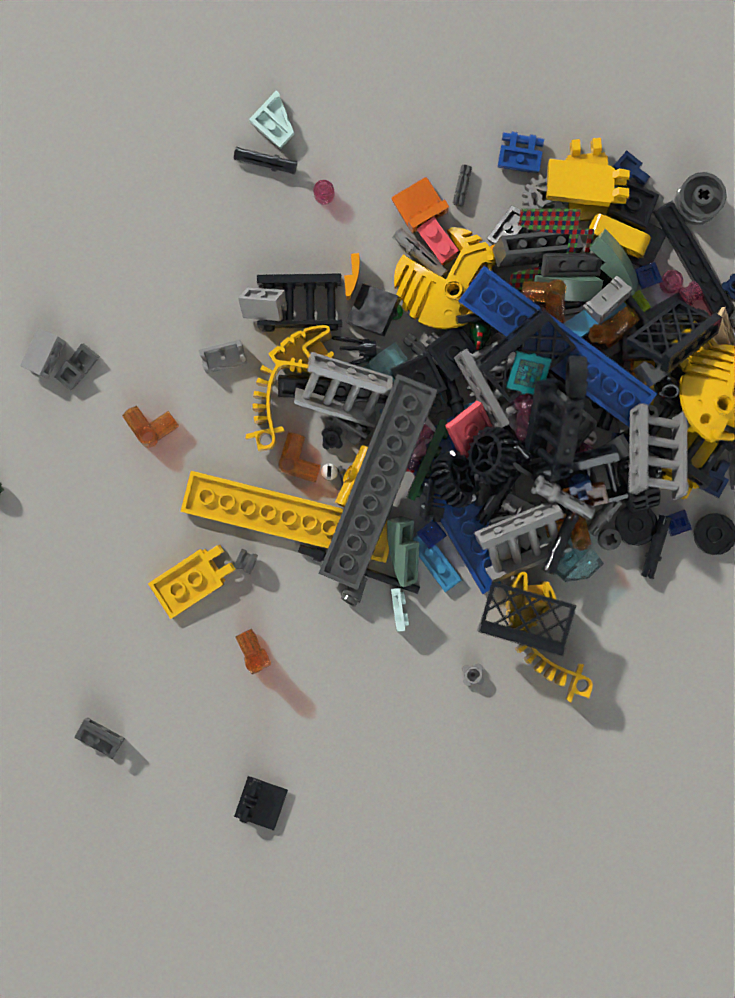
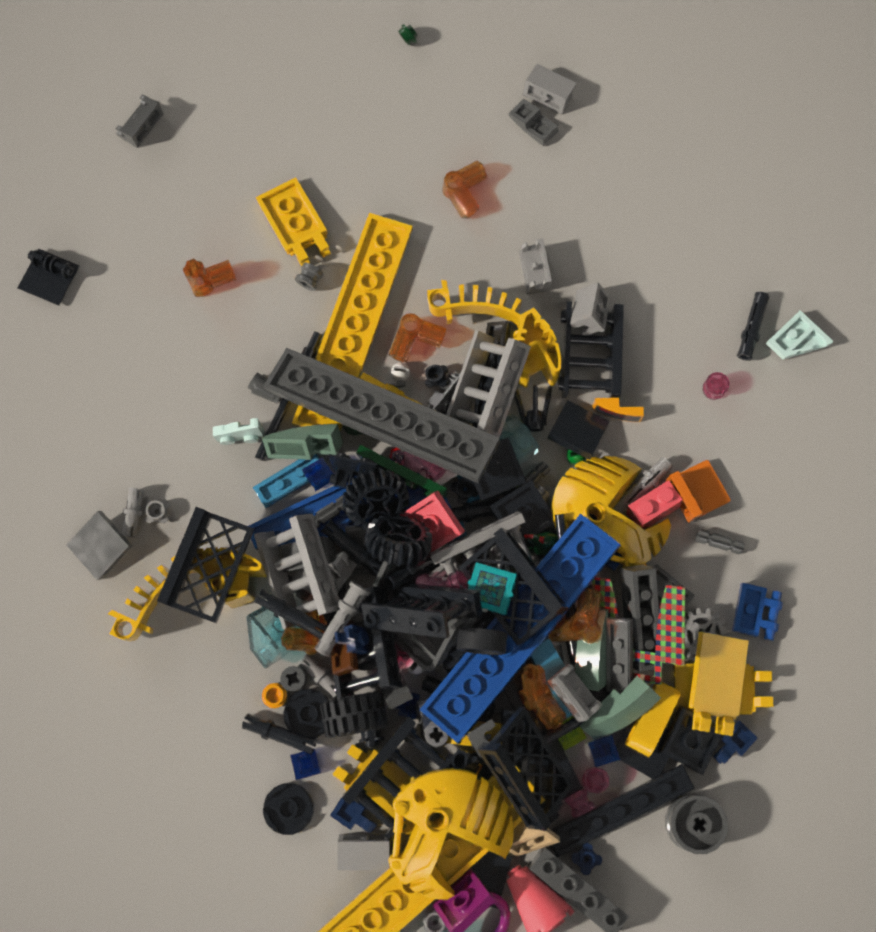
camera: 90 degrees right, 10 degrees down
(465, 521) = (329, 512): none -> dark grey axle
(476, 696) = (132, 512): none -> light grey pin
(508, 721) = (99, 545): none -> tile
(624, 554) = (274, 695): none -> light orange plate
(640, 459) = (377, 711): light grey fence -> none

